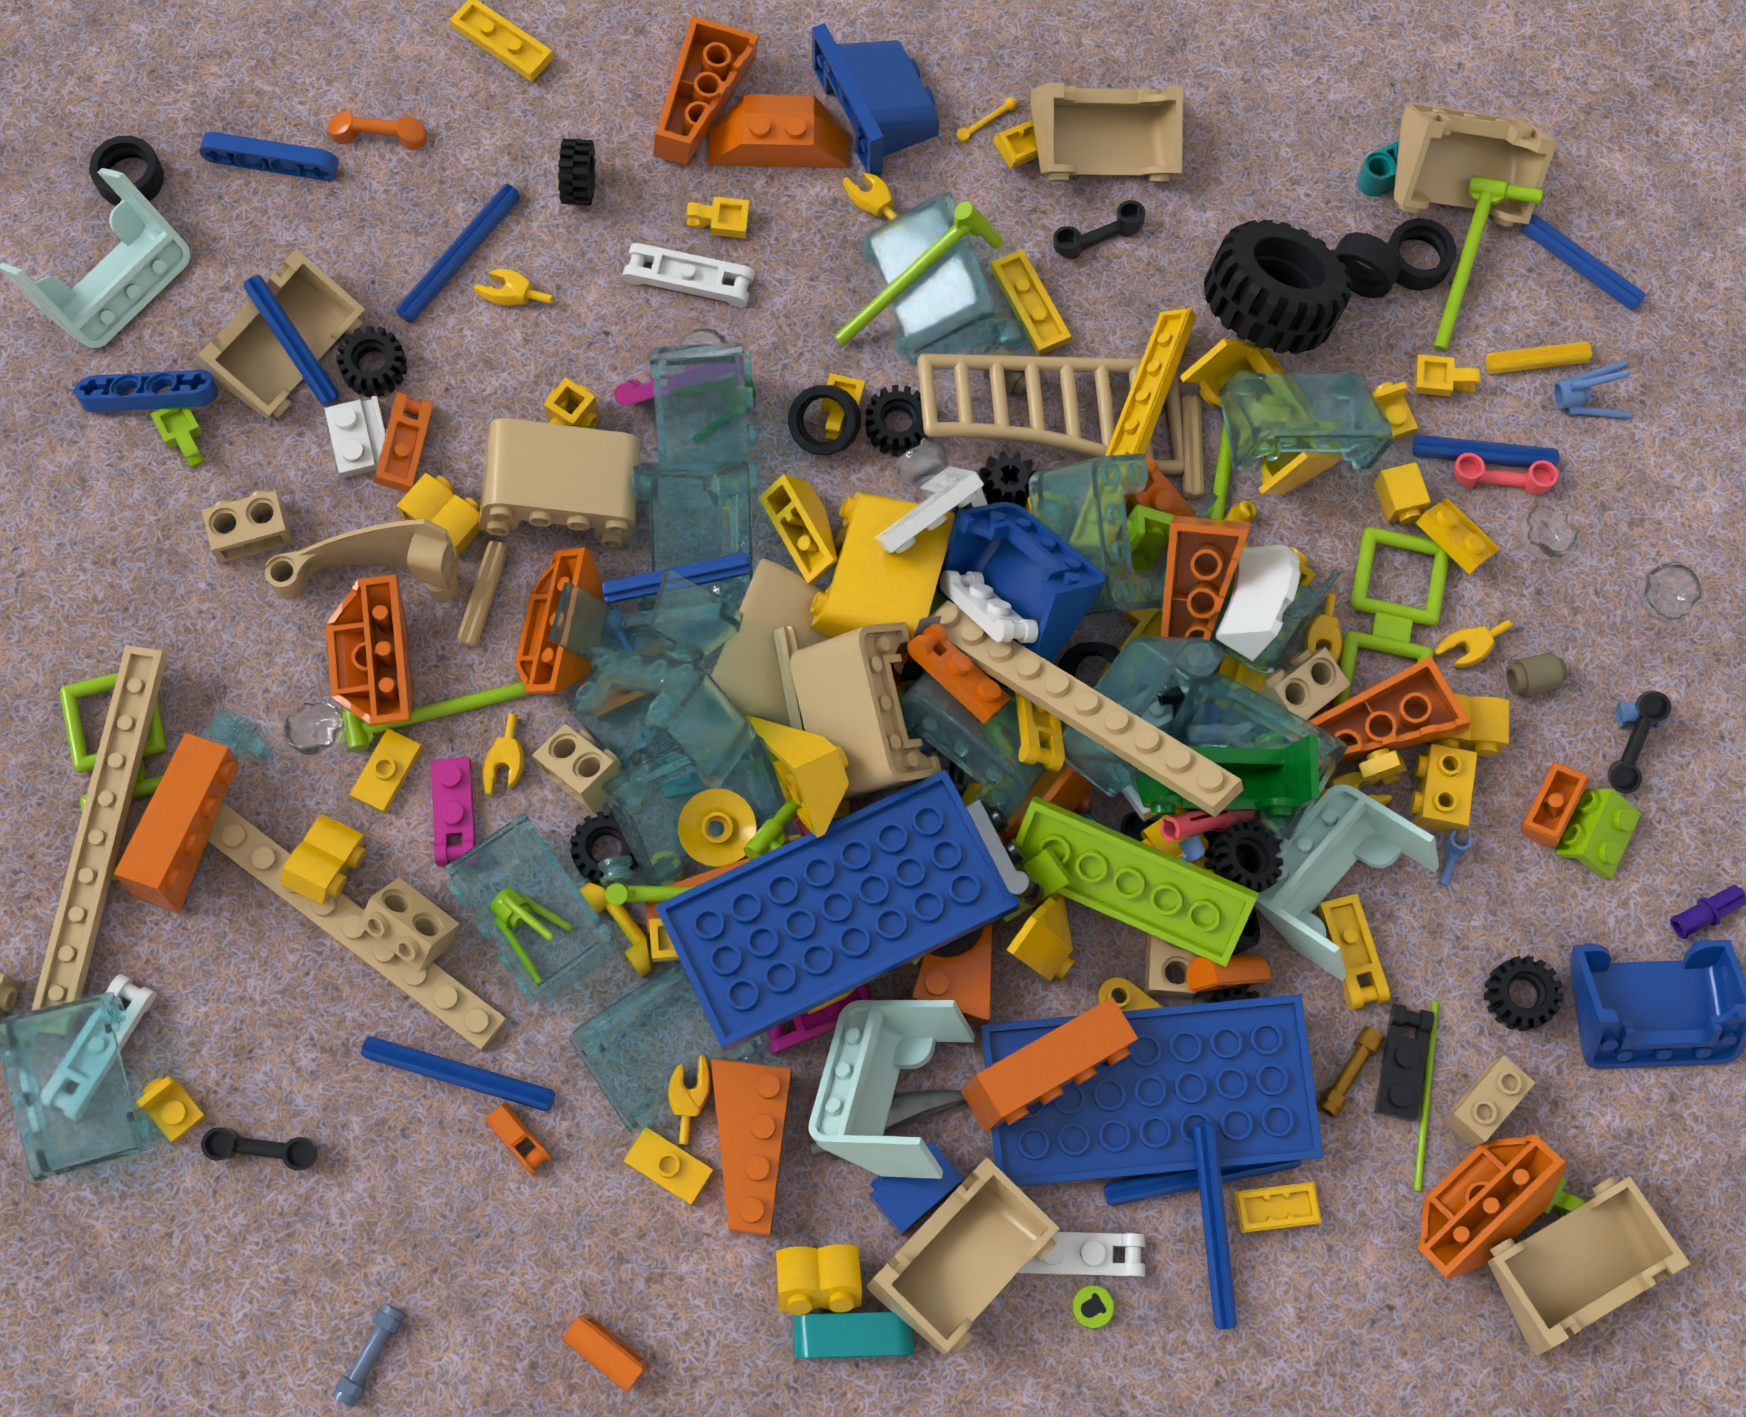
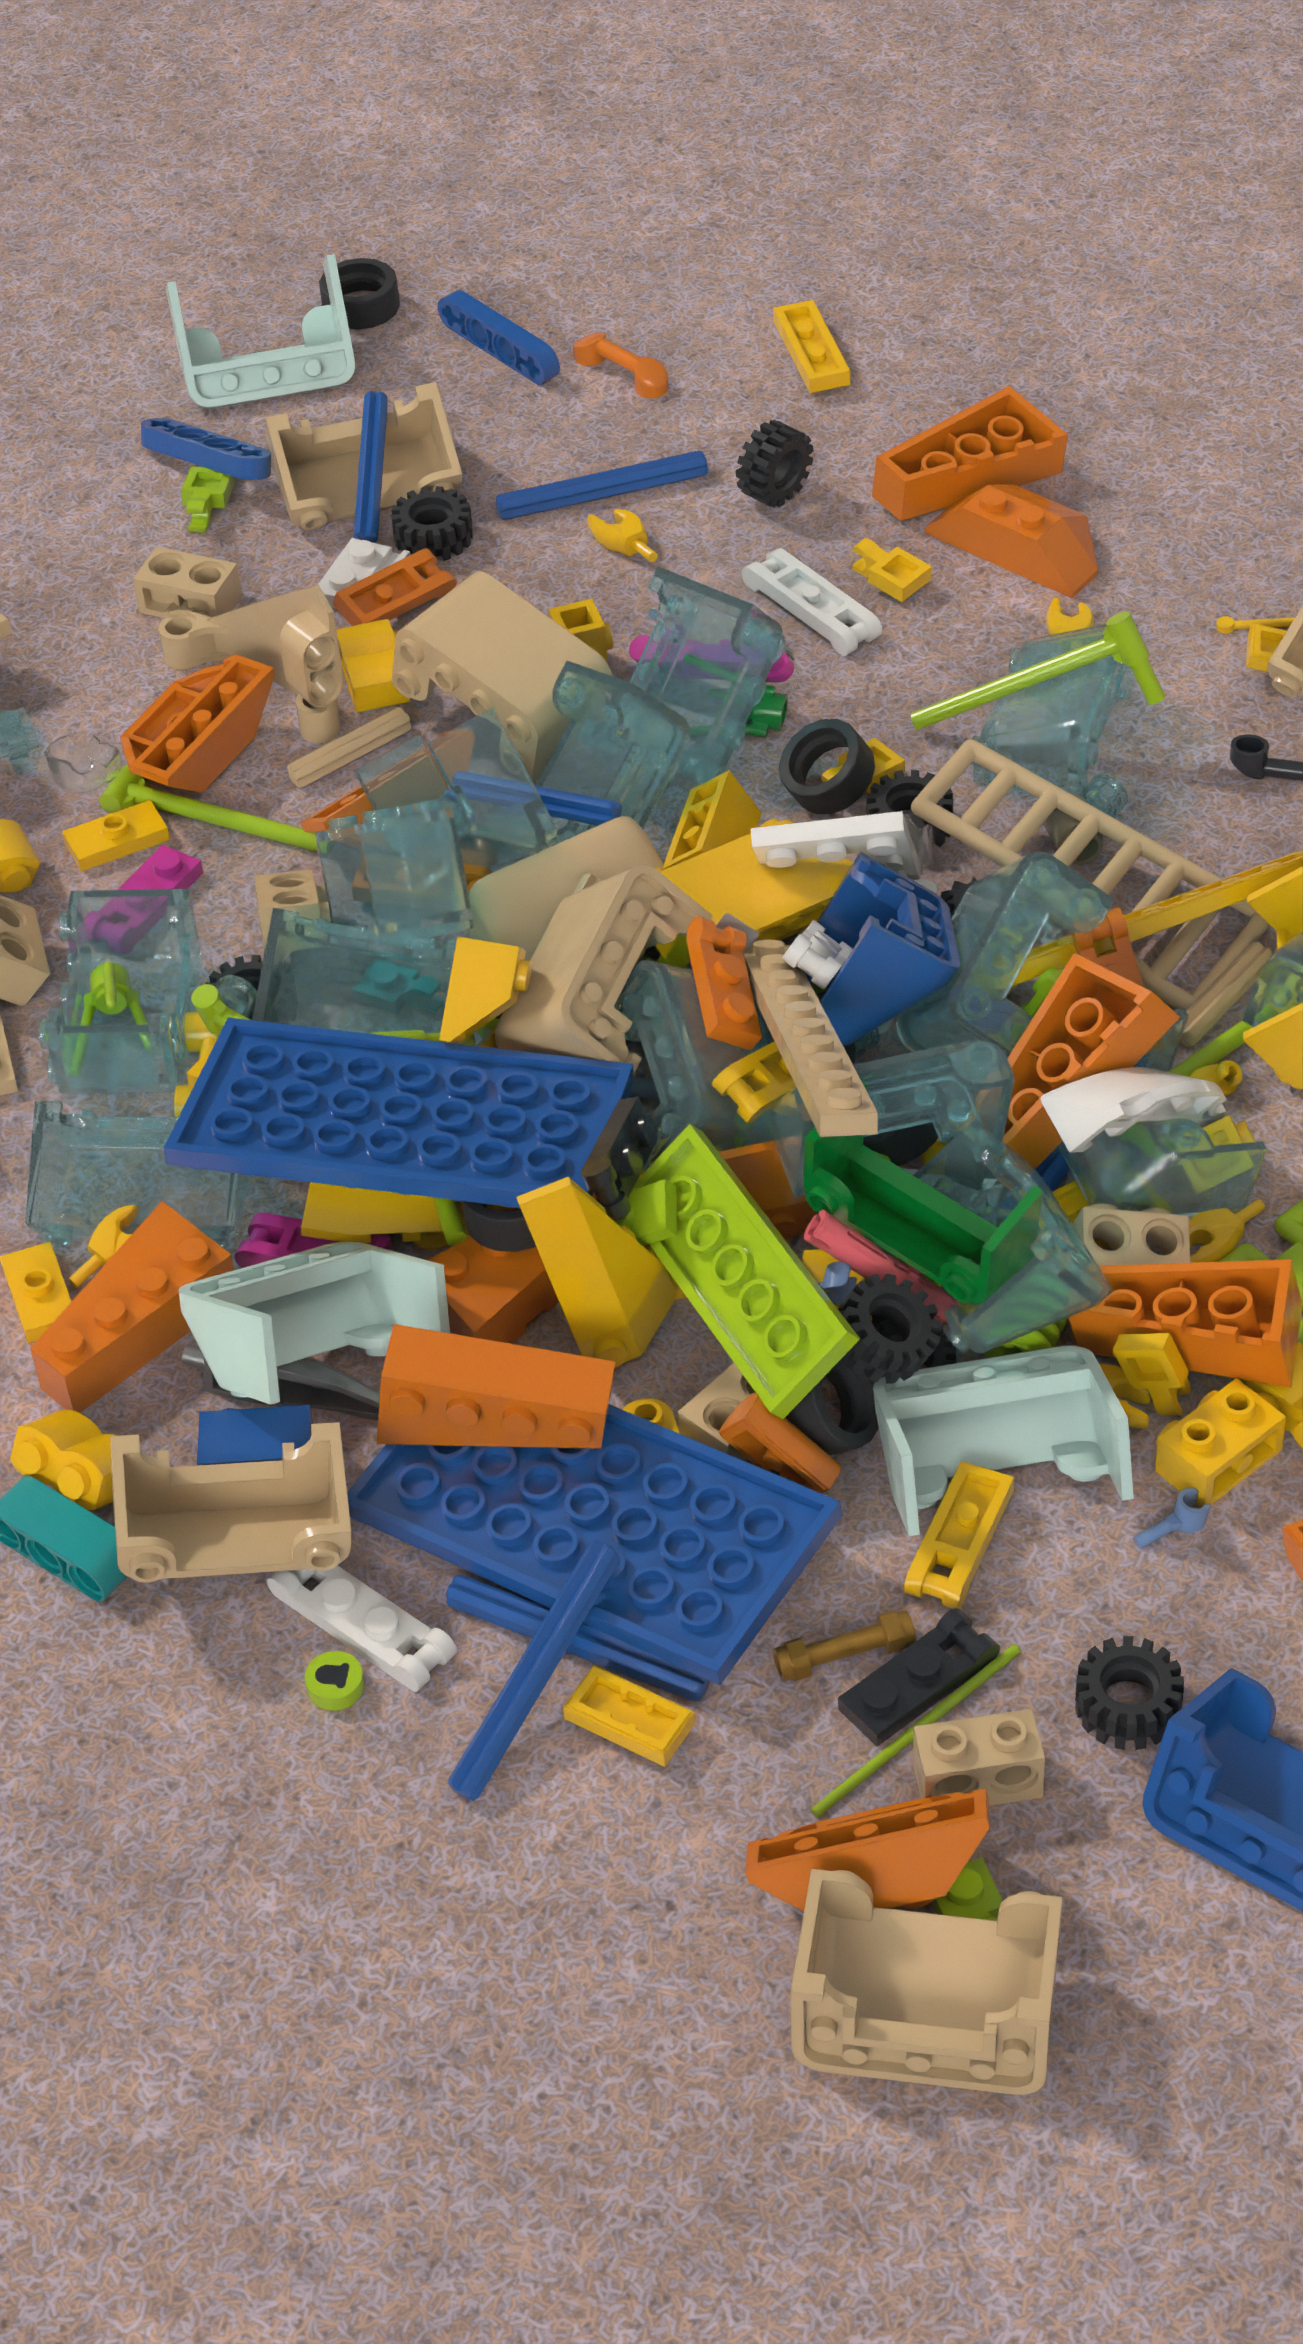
camera: 45 degrees right, 25 degrees down
(506, 753) = (233, 881): yellow hand -> none
(721, 807) = (369, 1005): yellow dish -> none
(878, 94) = (1150, 540): blue windscreen -> none
(1030, 302) = (1157, 783): yellow plate -> none

